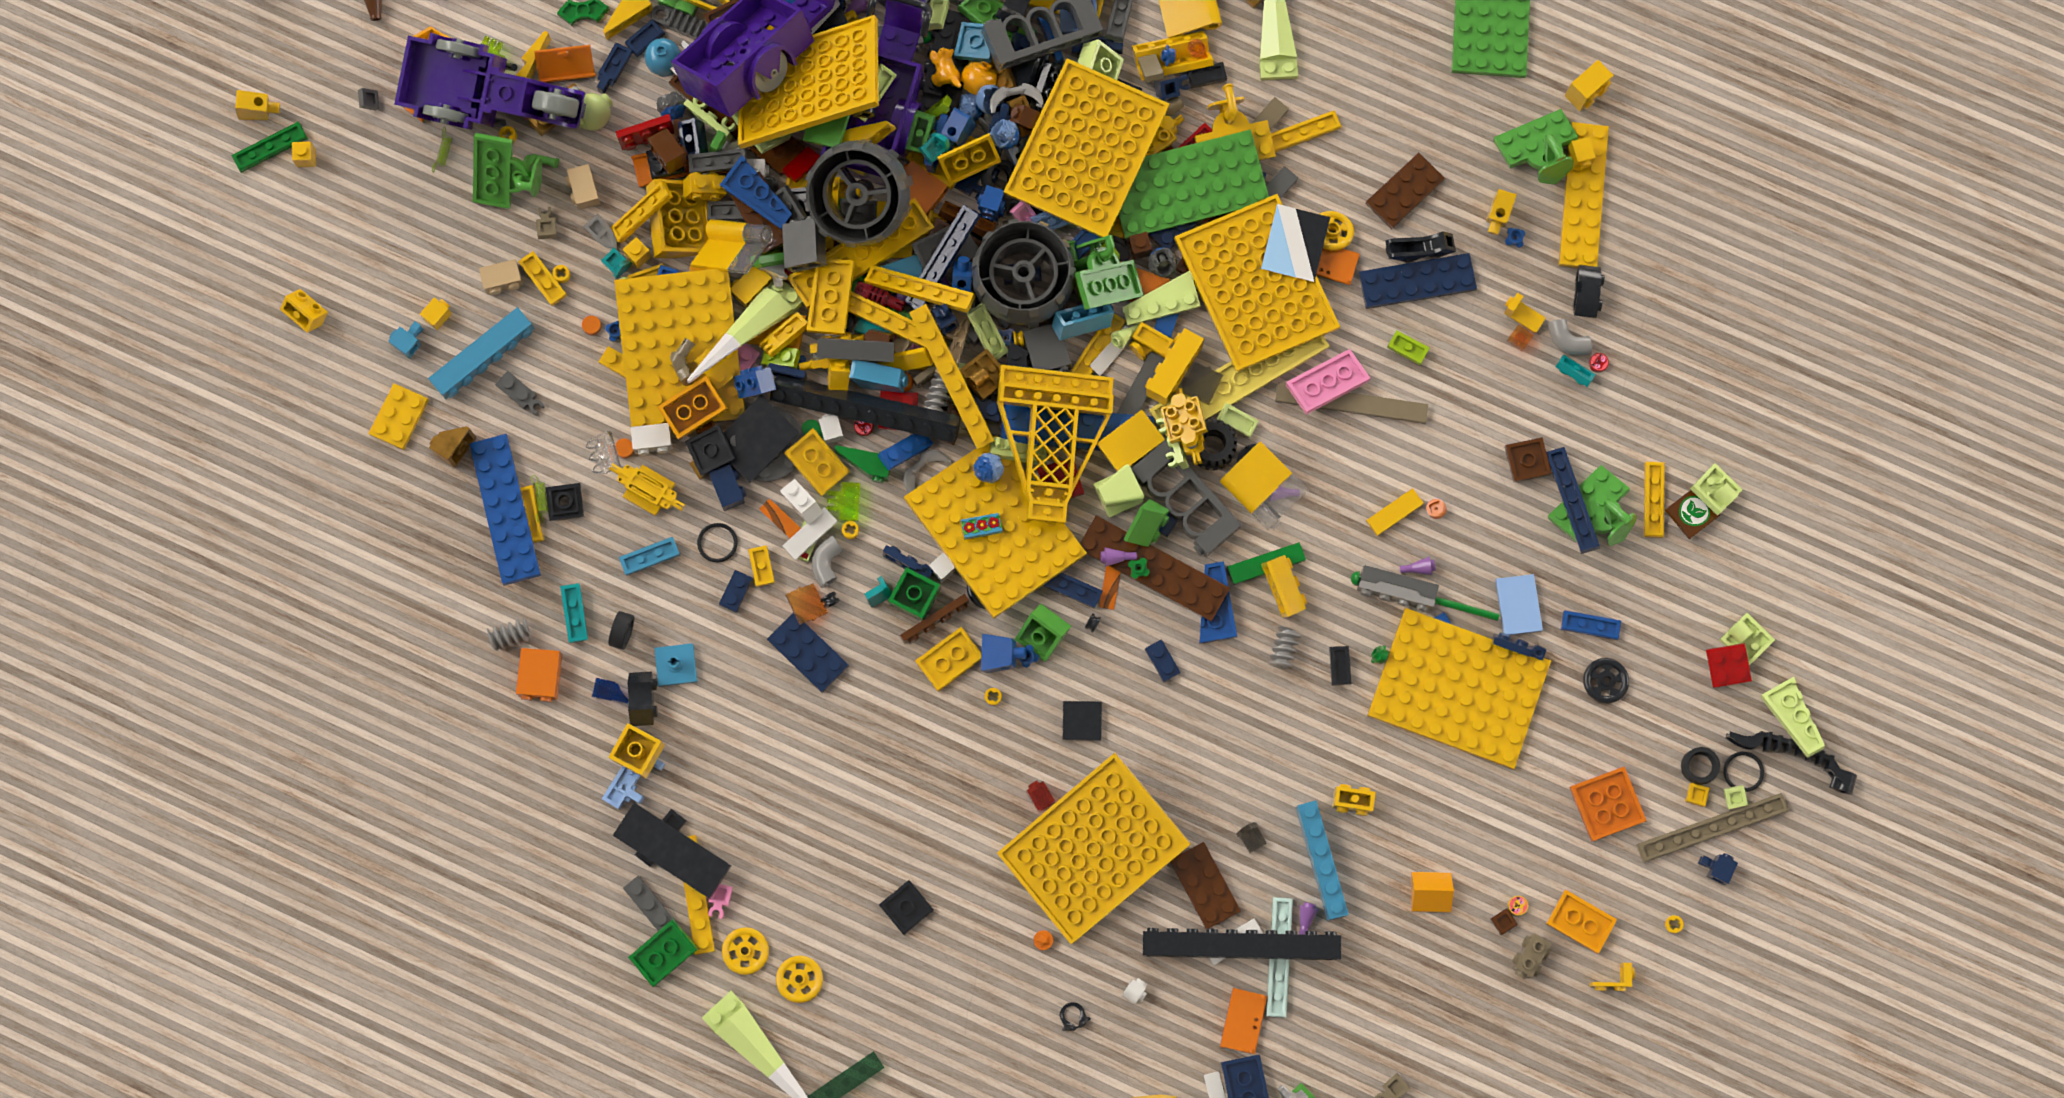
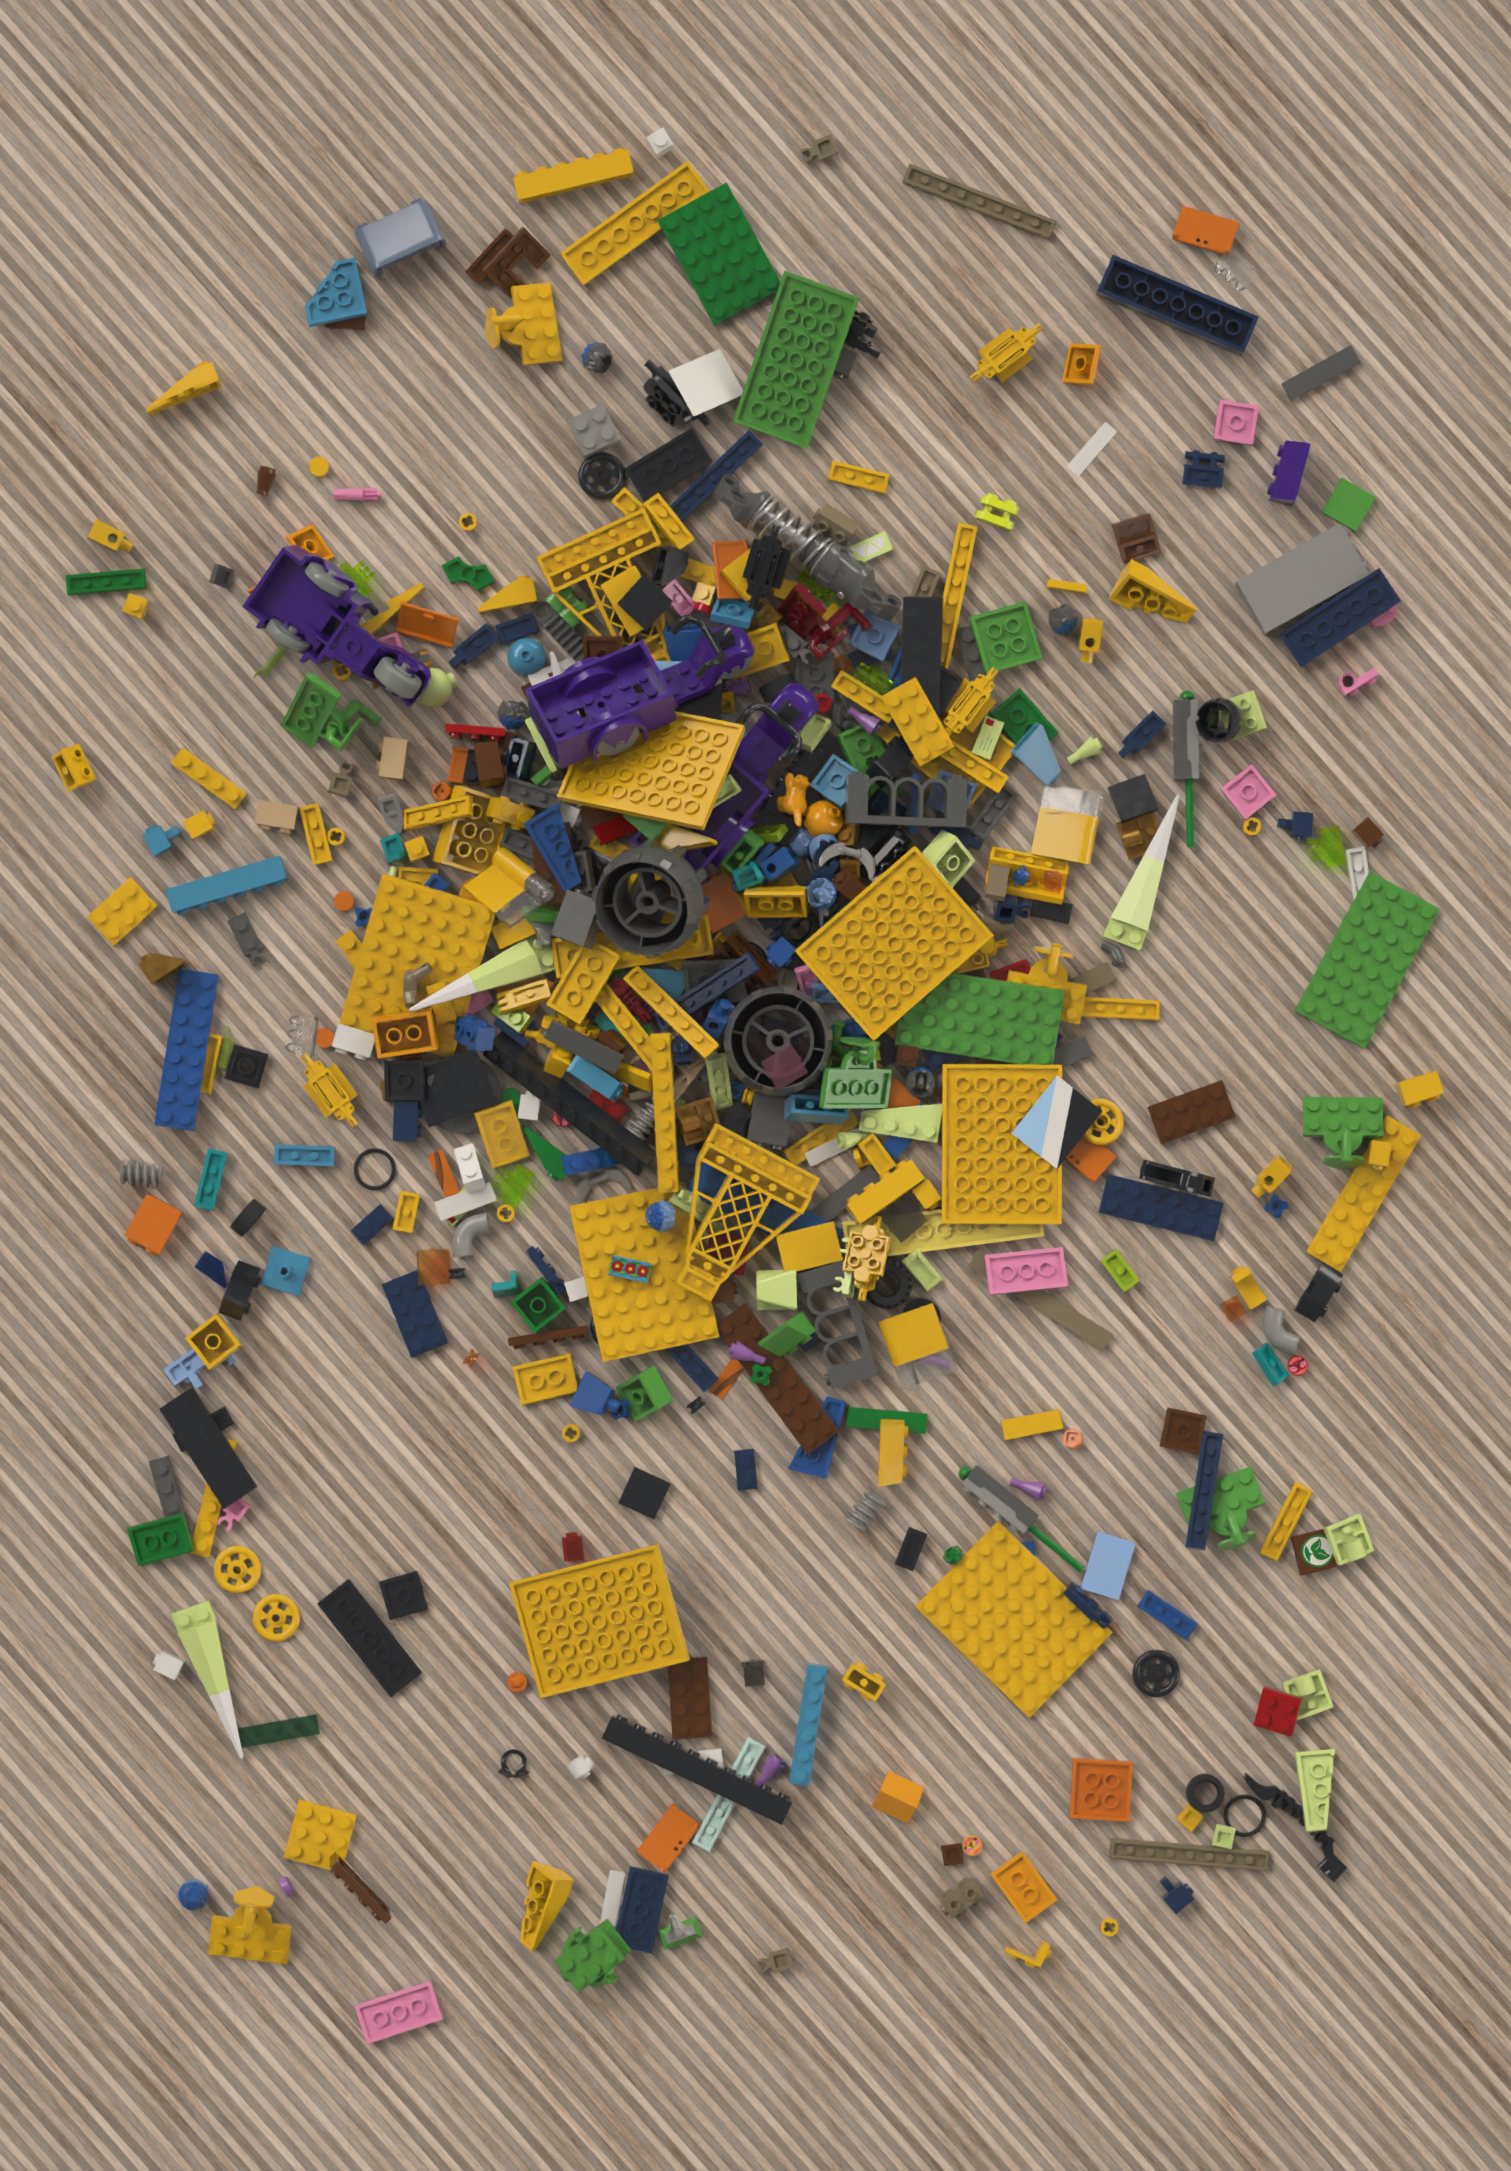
camera: 25 degrees right, 10 degrees up
(428, 272) = (209, 778): none -> yellow plate
(636, 195) = (442, 791): none -> orange tile
(718, 1065) = (168, 1664): none -> white brick
(875, 668) = (471, 1358): none -> clear orange bush
(892, 959) = (369, 1638): none -> black tile
(1039, 286) = (784, 1067): none -> clear pink piece
(1075, 513) = (725, 1292): none -> reddish brown brick
(1211, 355) = (927, 1195): none -> yellow brick
(1277, 86) = (1115, 951): none -> dark grey arm

